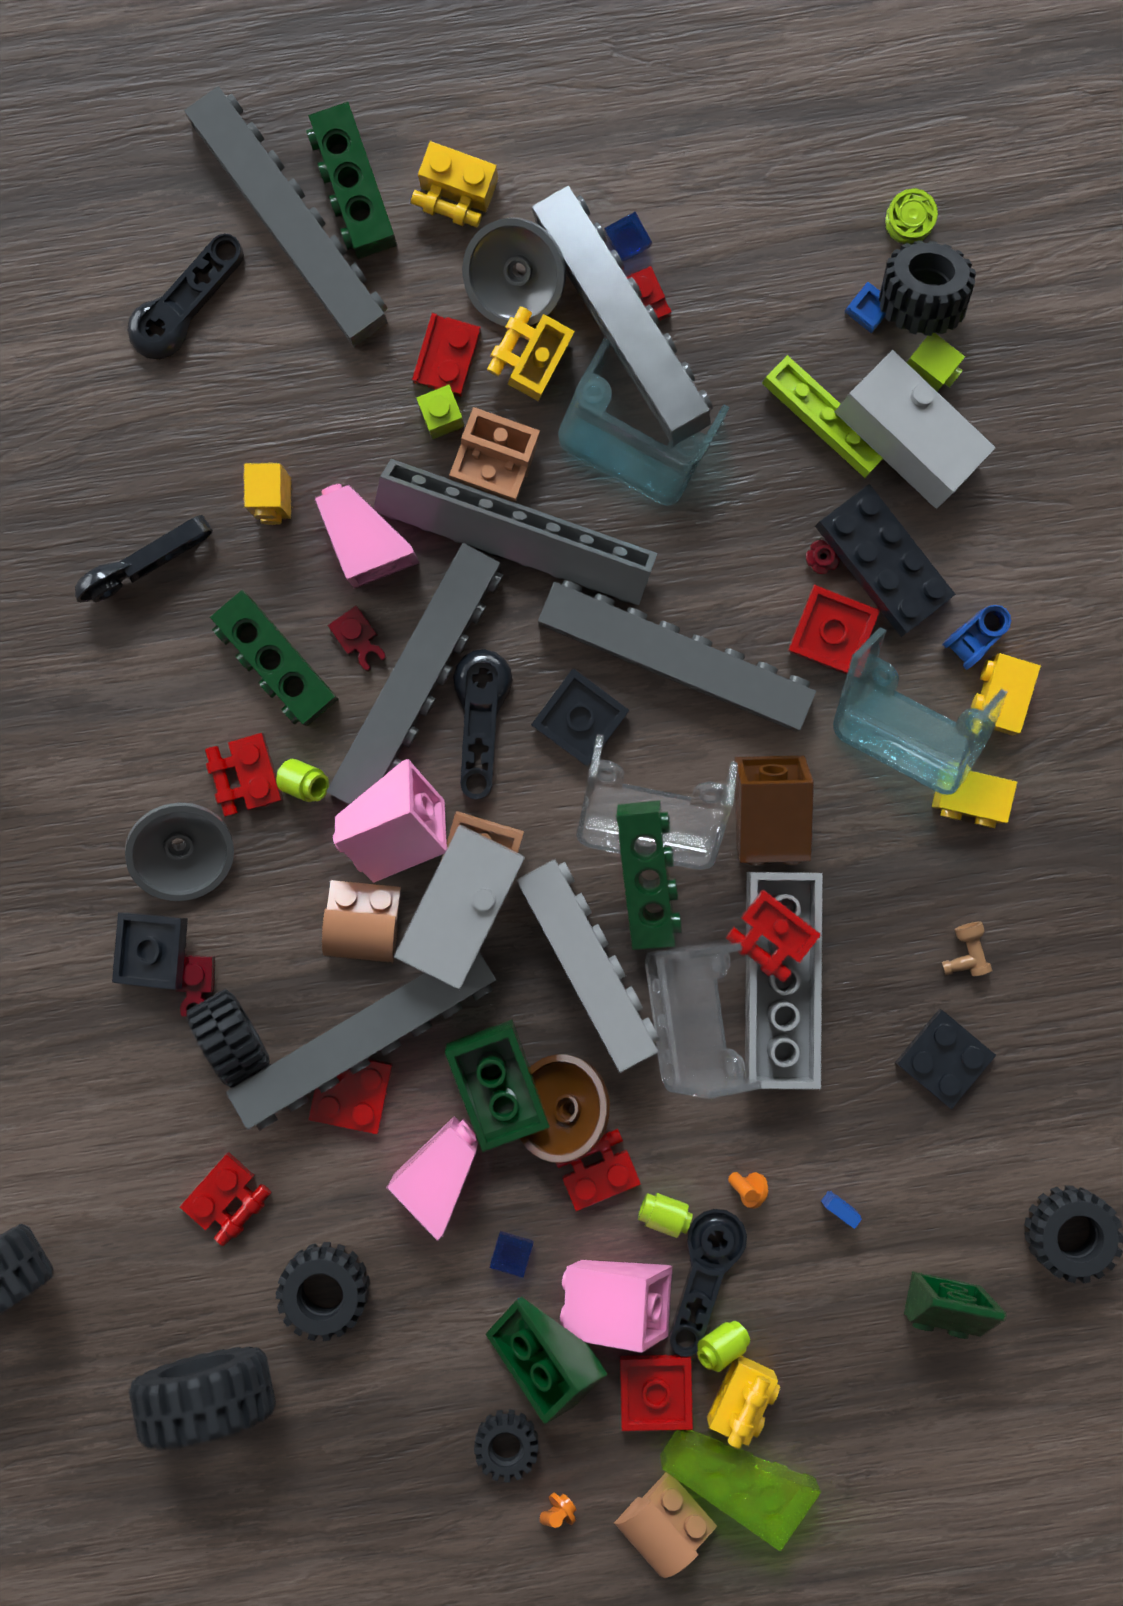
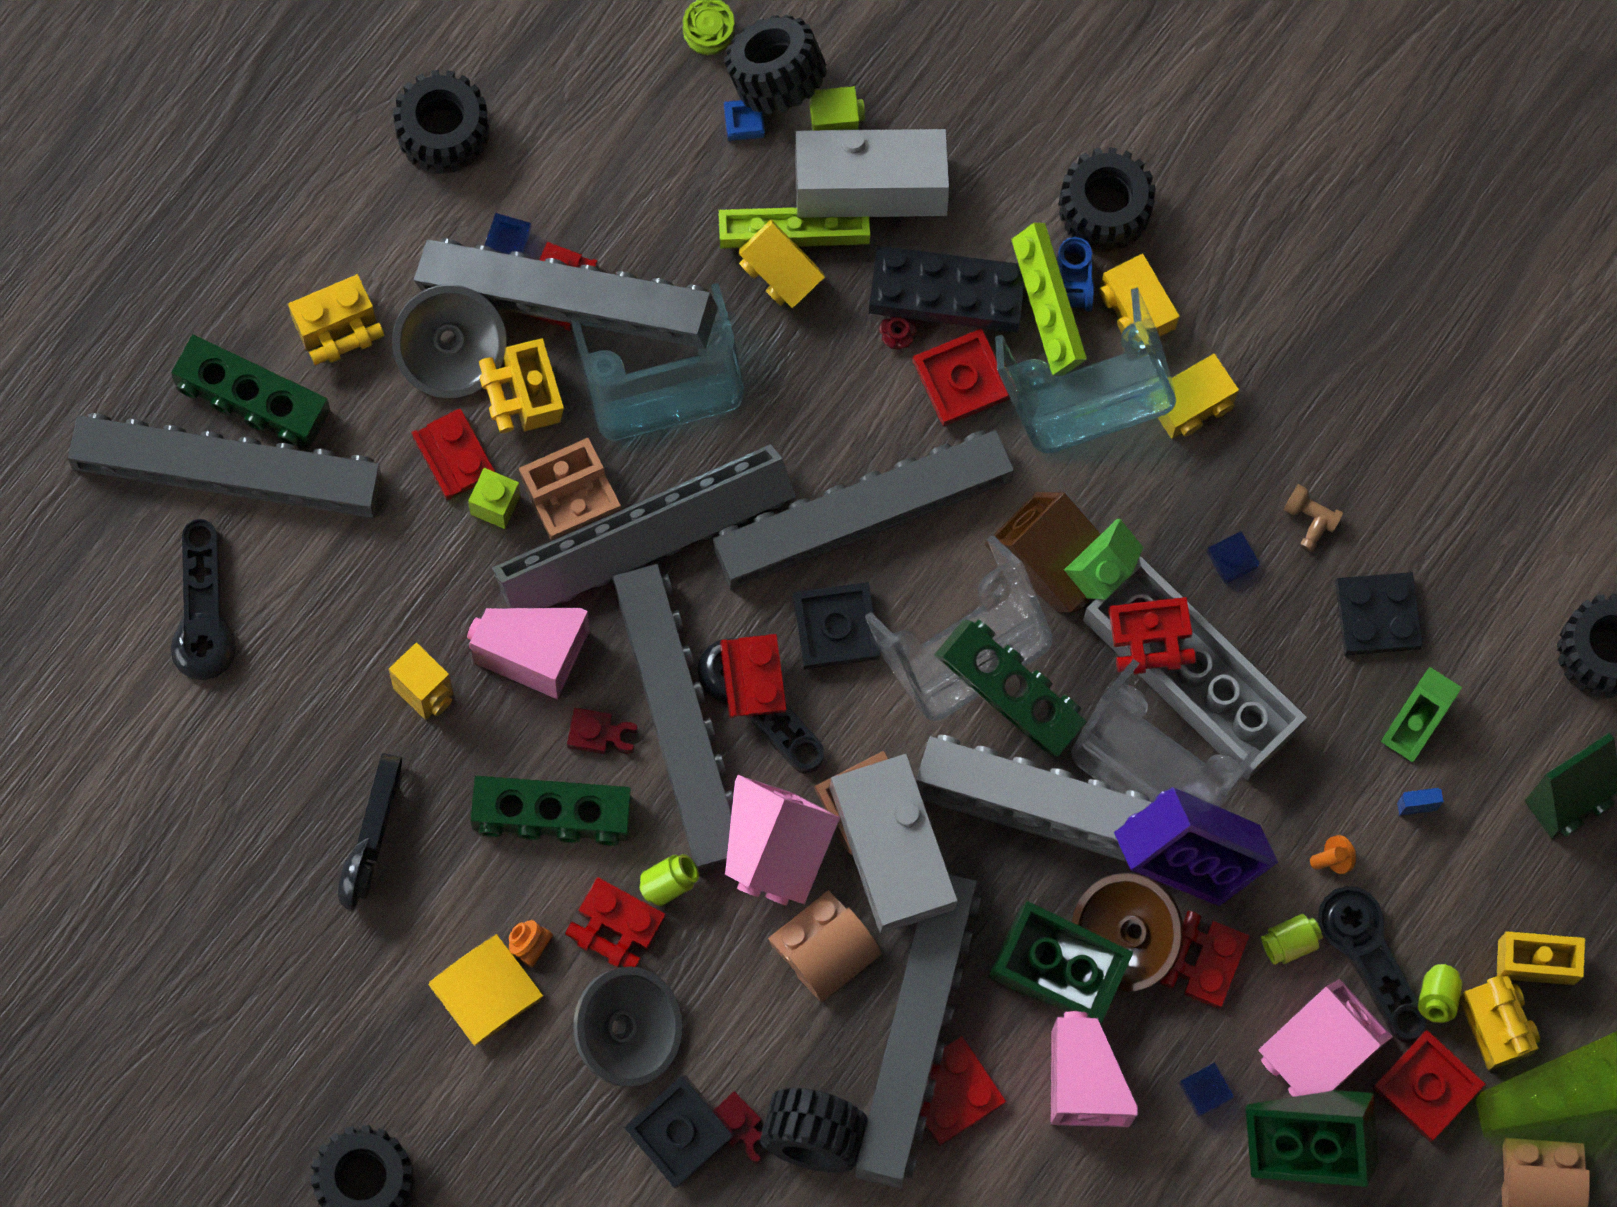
camera: 50 degrees left, 15 degrees down
(119, 736) = (485, 990): none -> yellow slope
(177, 731) = (529, 941): none -> orange plate
(488, 699) = (753, 676): none -> red plate
(652, 1106) = (1195, 846): none -> dark purple brick
(665, 82) = (435, 94): none -> black tyre
(788, 434) = (780, 265): none -> yellow brick
(795, 855) = (1106, 562): none -> bright green slope
(811, 1389) = (1541, 958): none -> yellow brick
(888, 927) = (1232, 557): none -> clear blue plate
(903, 1154) = (1421, 714): none -> bright green slope
(944, 634) = (1048, 299): none -> lime plate
(1084, 597) = (1112, 171): none -> black tyre

